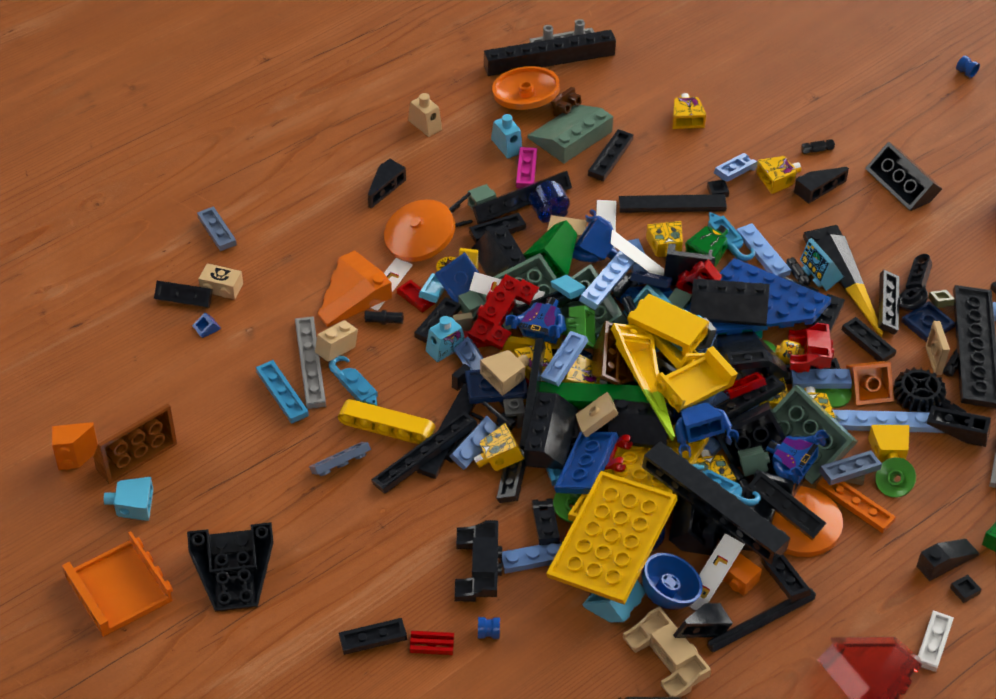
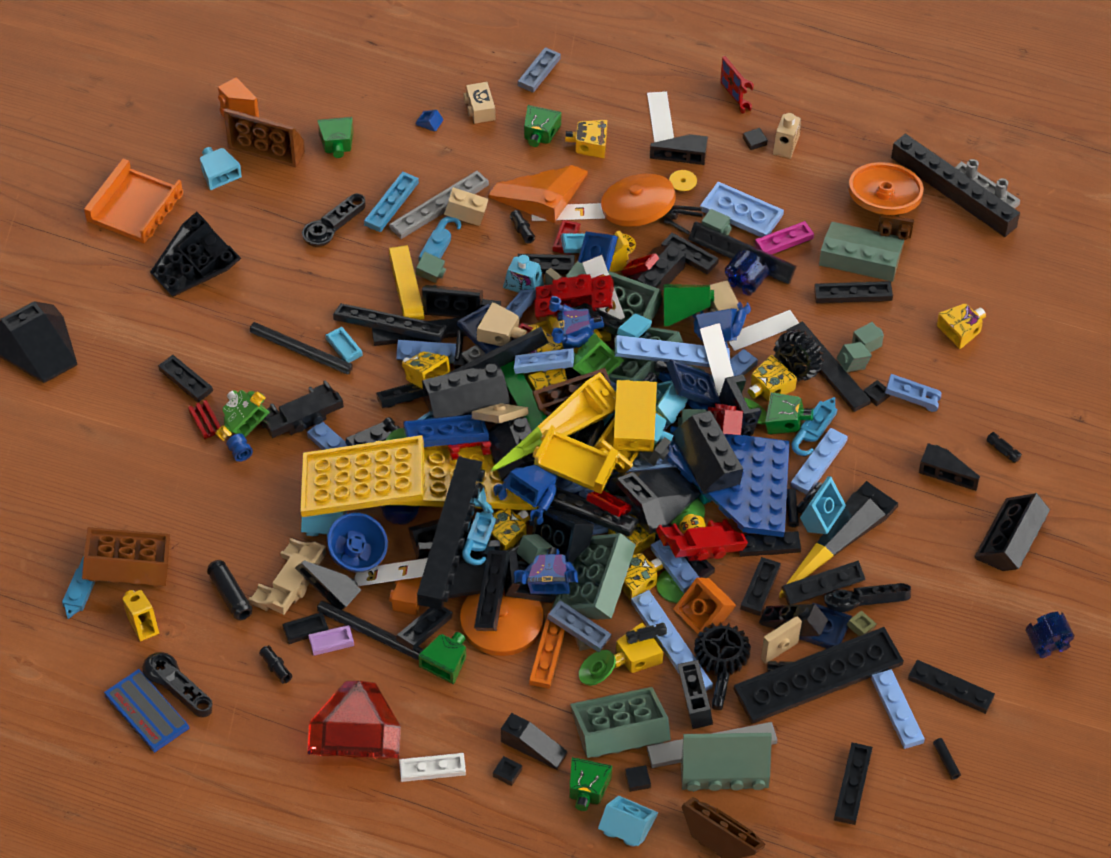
camera: 60 degrees right, 5 degrees up
(171, 391) = (336, 135): none -> green torso
(183, 293) = (448, 86): black plate -> none
(270, 444) = (332, 221): none -> black beam
(280, 255) = (541, 125): none -> green torso
(324, 230) = (589, 138): none -> yellow torso
(333, 182) = (660, 116): none -> white sticker
(340, 459) = (346, 273): sand blue plate -> none
(347, 118) = (735, 84): none -> red flag
(385, 394) = (430, 267): none -> sand green brick
(399, 532) = (301, 348): none -> black axle
(406, 138) = (755, 139): none -> black tile
(414, 195) = (683, 180): none -> yellow piece
(420, 499) = (344, 345): none -> medium azure tile
(436, 395) = (450, 301): none -> black slope
(455, 603) = (242, 413): none -> bright green torso
(490, 171) = (745, 210): none -> light blue plate
(492, 258) = (640, 264): none -> red tile
(507, 136) = (809, 199): medium azure torso -> none
(658, 205) = (802, 353): none -> black gear
(664, 167) = (870, 336): none -> sand green brick
(679, 182) = (854, 356): none -> sand green brick
(728, 669) = (300, 629): none -> black tile
(753, 655) = (331, 640): none -> lavender tile
(777, 173) = (933, 428): yellow torso -> none
(825, 576) = (444, 656): none -> green torso
(887, 425) = (646, 633): none -> black axle
(916, 333) = (811, 616): none -> black slope
(957, 487) = (620, 722): none -> sand green slope

